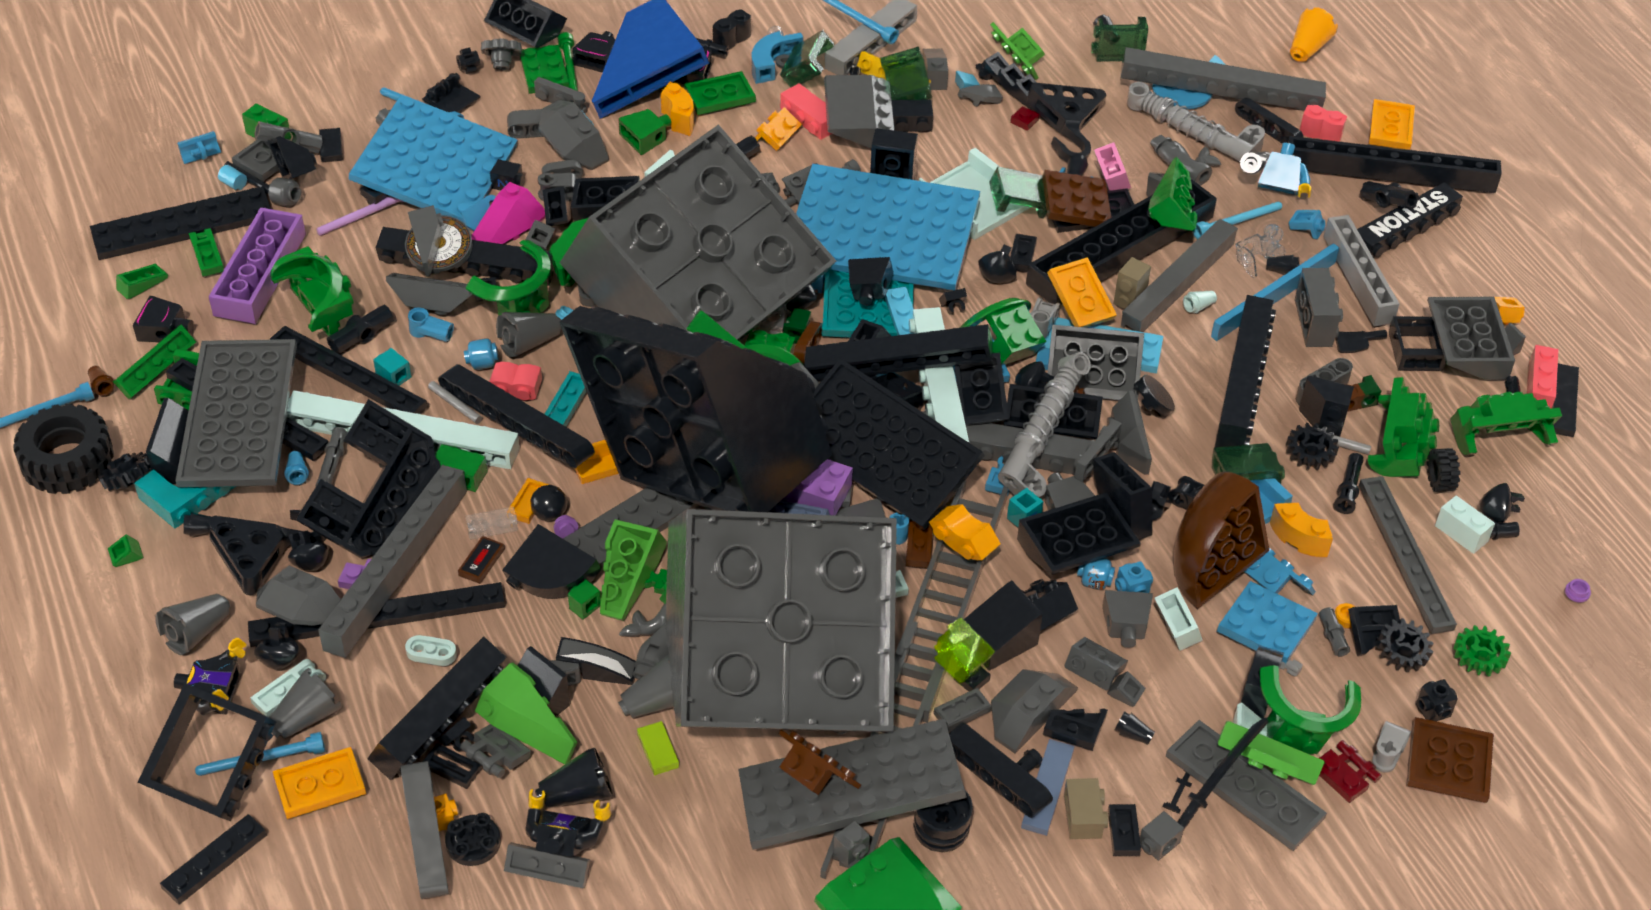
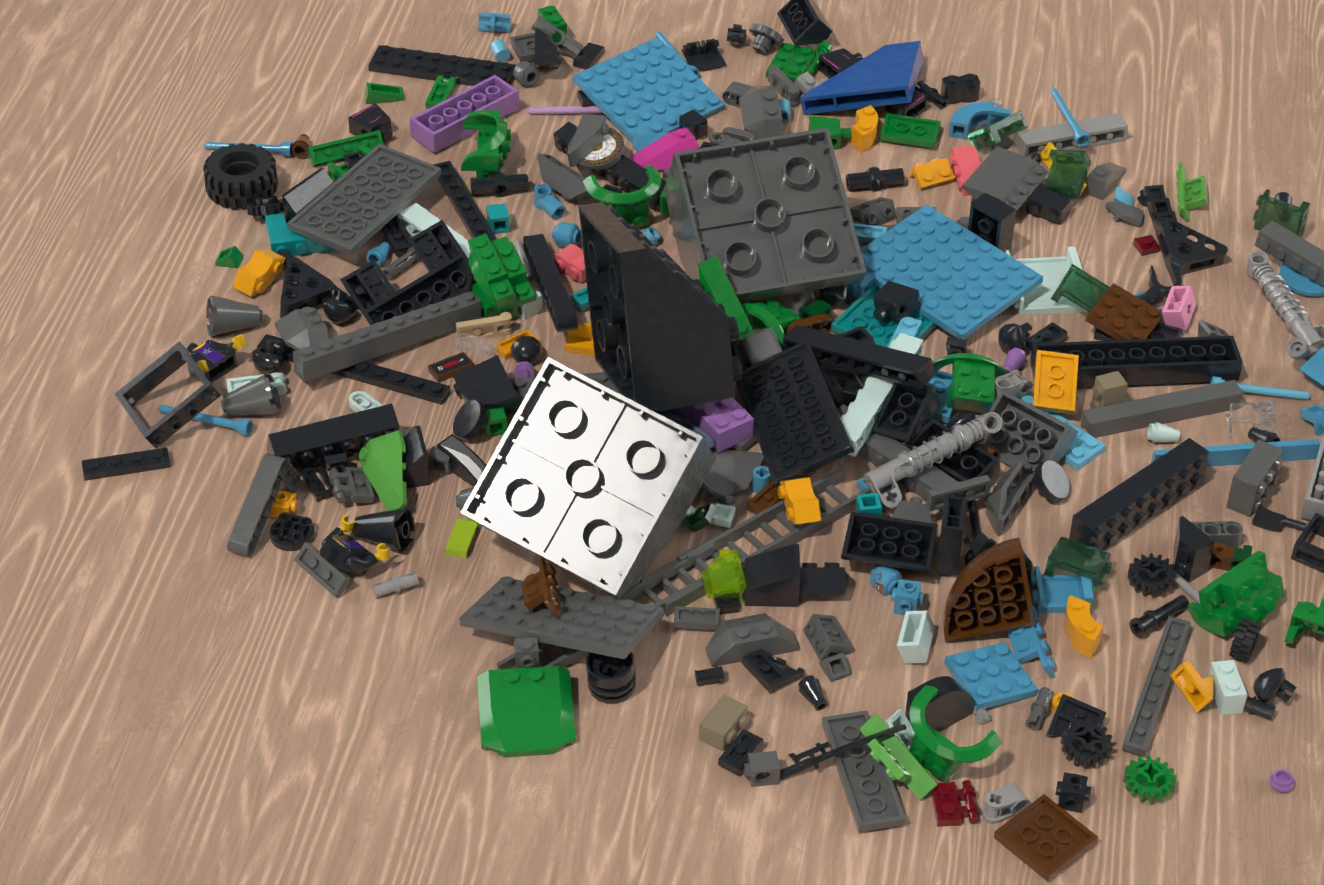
camera: 35 degrees right, 5 degrees down
(181, 553) = (259, 272): none -> light orange brick
(250, 178) = (513, 56): black bar -> none
(319, 782) = (225, 450): light orange plate -> none
(464, 429) = (500, 273): none -> green piece
(483, 497) = (487, 326): none -> tan plate
(561, 611) = (470, 420): none -> black tile
(584, 84) = (807, 82): none -> light grey bracket
(636, 839) = (395, 584): none -> light grey pin
(999, 771) = (681, 666): black beam -> none
(1014, 286) = (1014, 360): none -> medium lavender cone
(1052, 775) = (701, 703): sand blue tile -> none
(1126, 615) = (881, 618): dark grey torso -> none
(1172, 199) = (1201, 345): green wedge -> none
(1199, 168) = (1248, 324): dark grey piece -> none
(1441, 538) = (1196, 690): none -> light orange slope

